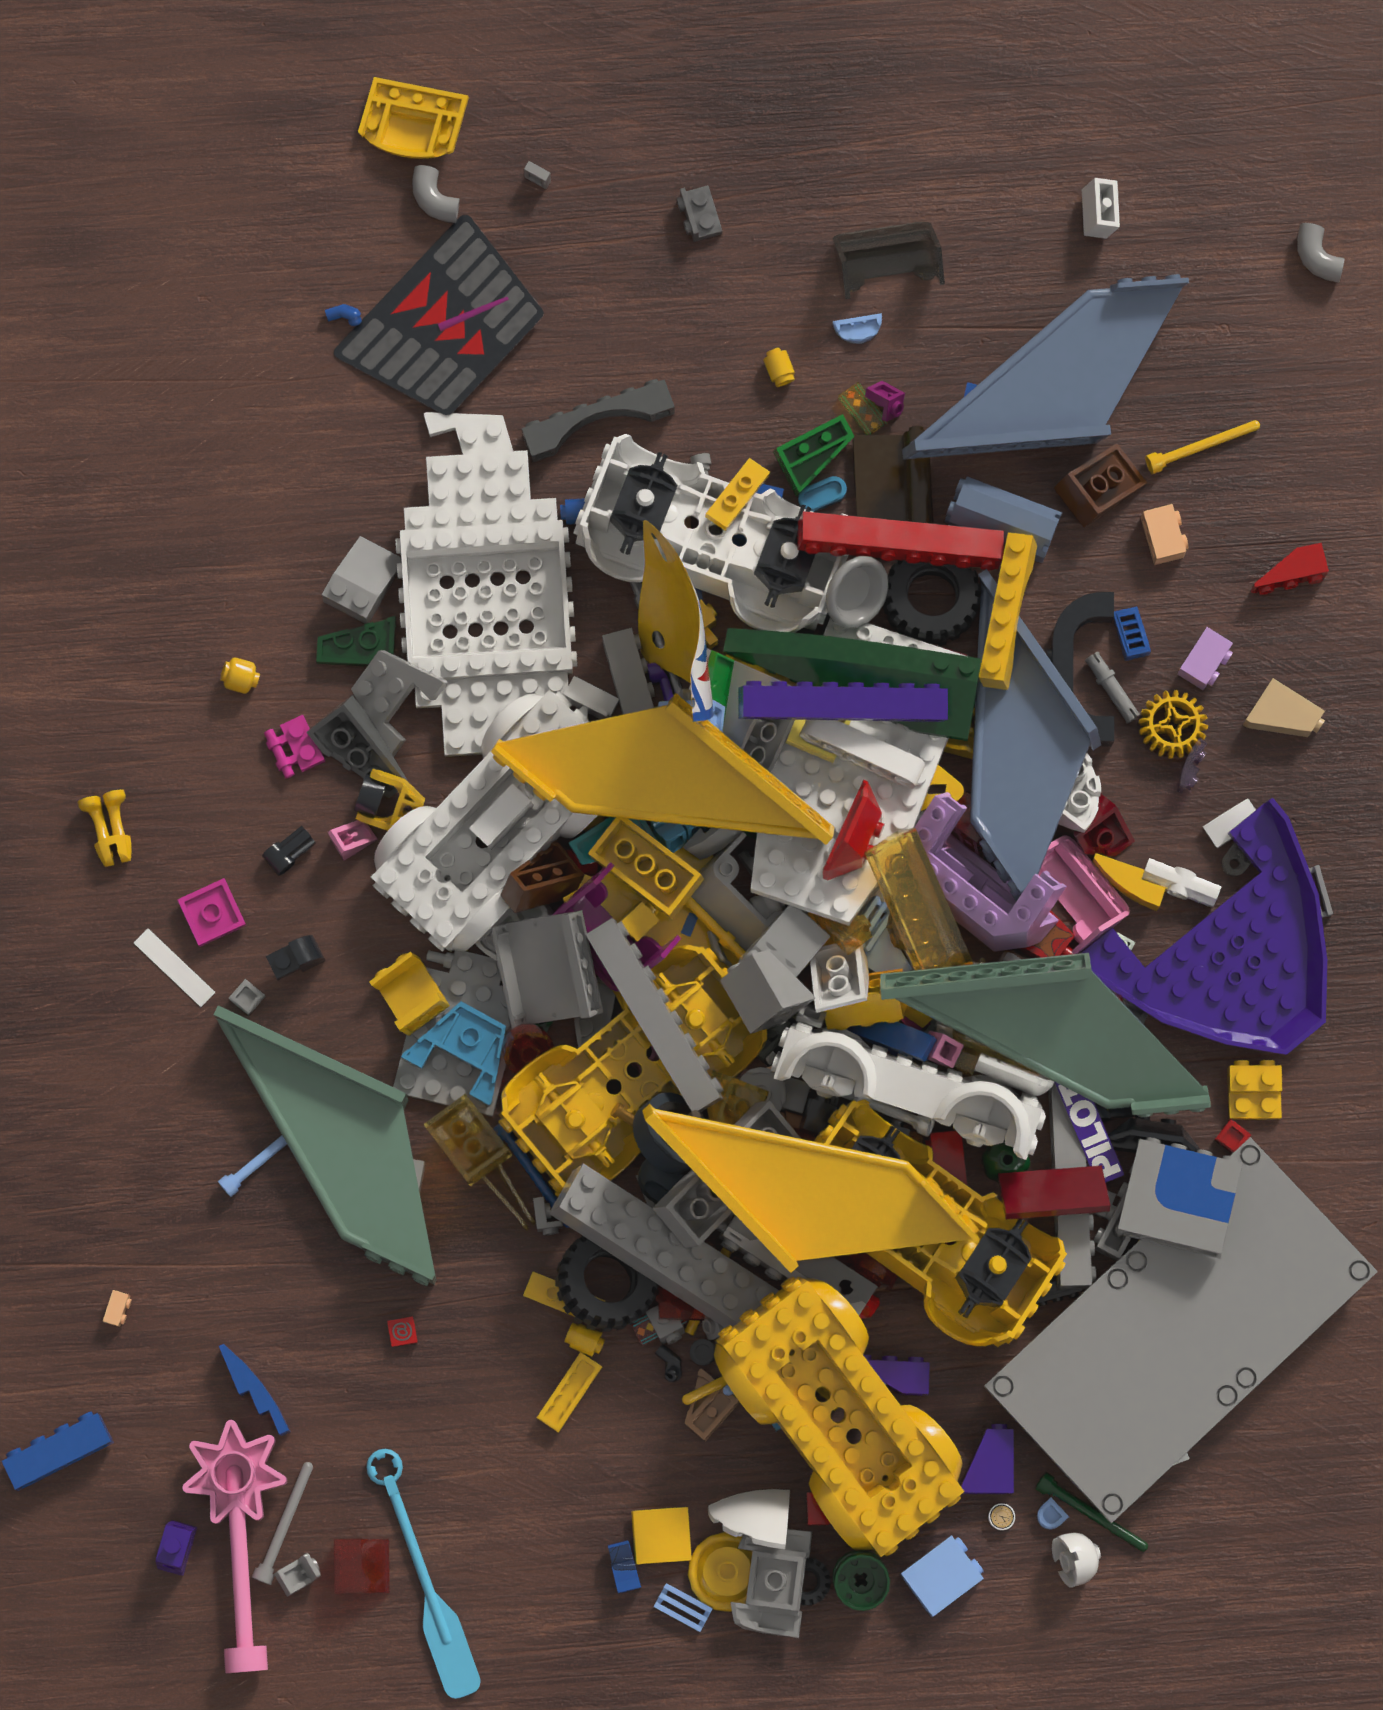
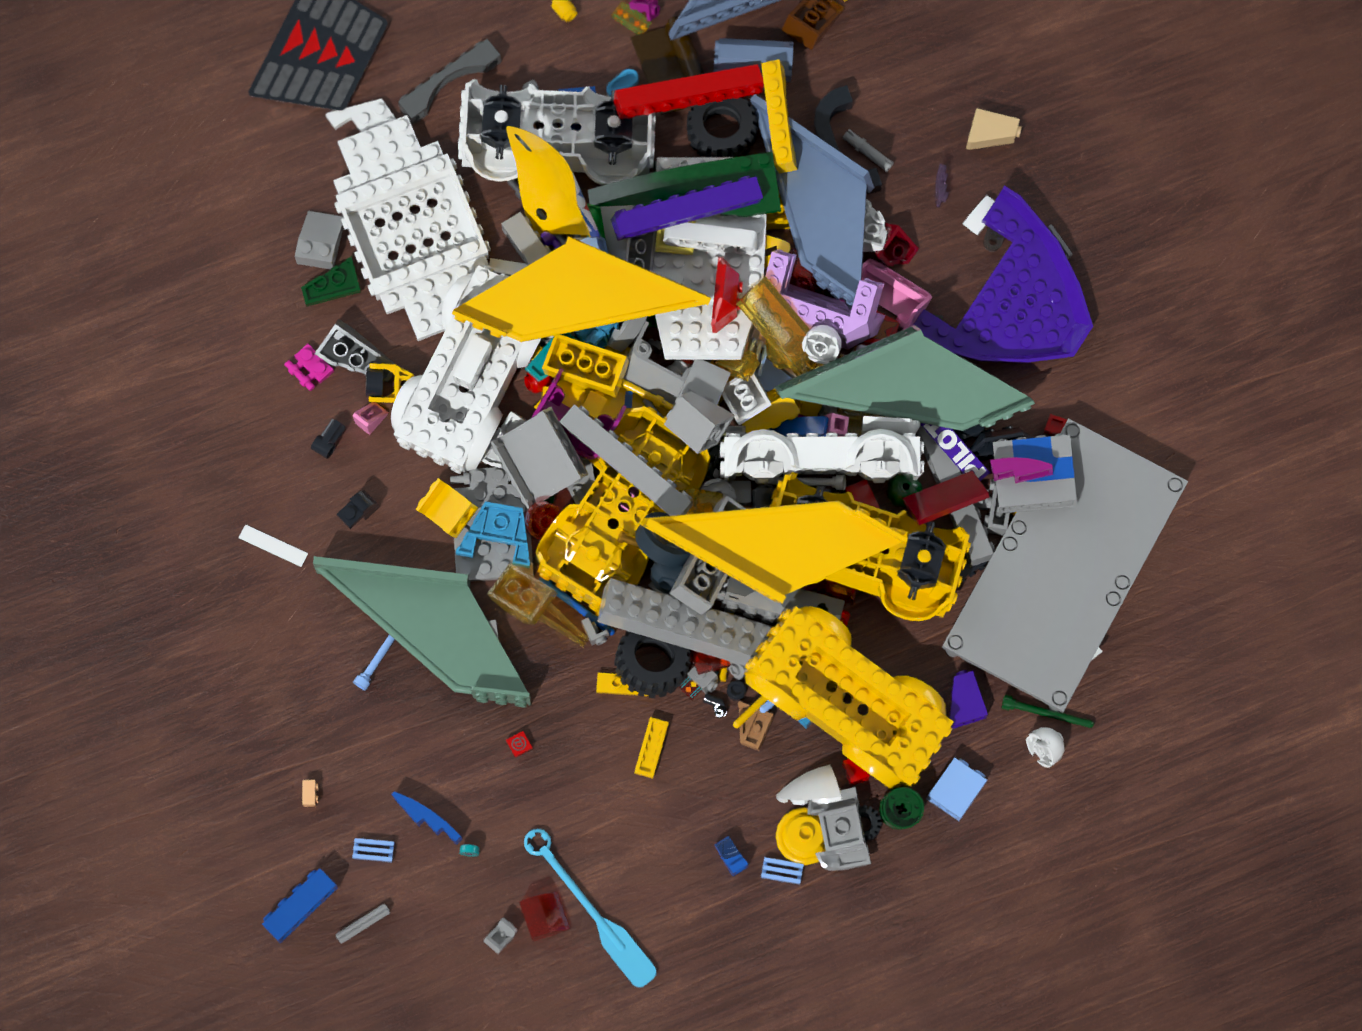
camera: 15 degrees left, 5 degrees down
(93, 807) = (192, 444): yellow piece -> none
(130, 1499) = (362, 923): none -> light grey axle
(153, 1399) = (356, 848): none -> light blue tile
(175, 1547) = (406, 946): dark purple torso -> none
(211, 912) = (287, 498): dark pink plate -> none
(234, 1478) = (434, 883): bright pink piece -> none
(239, 675) = (254, 330): yellow head -> none
(247, 997) = (331, 548): light grey tile -> none
(265, 1571) = (476, 942): light grey piece -> none
(294, 1450) = (469, 850): none -> teal tile
(345, 311) = (247, 63): blue arm -> none
(386, 686) = (360, 306): light grey wing -> none
(455, 320) = (334, 39): magenta bar -> none
(542, 880) = (515, 398): reddish brown wedge -> none
(571, 510) = (451, 147): blue brick -> none
(584, 1339) = (650, 707): yellow brick -> none
(661, 1535) = (750, 825): yellow slope -> none
(737, 494) = (564, 96): yellow plate -> none
(811, 452) = (605, 56): green wedge -> none
(857, 592) = (670, 135): light grey piece -> none
(903, 1376) = (887, 658): dark purple slope -> none
(960, 939) = (822, 344): none -> white cylinder
(1001, 1516) = (984, 735): tile -> none
(1051, 1515) = (1018, 723): light blue tile -> none
(1129, 881) = (924, 276): yellow slope -> none
(1137, 652) = (871, 124): blue slope -> none
(1162, 1189) = (1020, 468): none -> magenta slope
(1163, 728) = (929, 152): yellow gear -> none
(1164, 534) = (868, 37): light nougat brick -> none
(1181, 883) = (960, 266): white piece -> none
(1205, 659) = (925, 110): lavender brick -> none
(1254, 1090) = (1059, 389): yellow plate -> none
(1300, 566) = (970, 28): red slope -> none

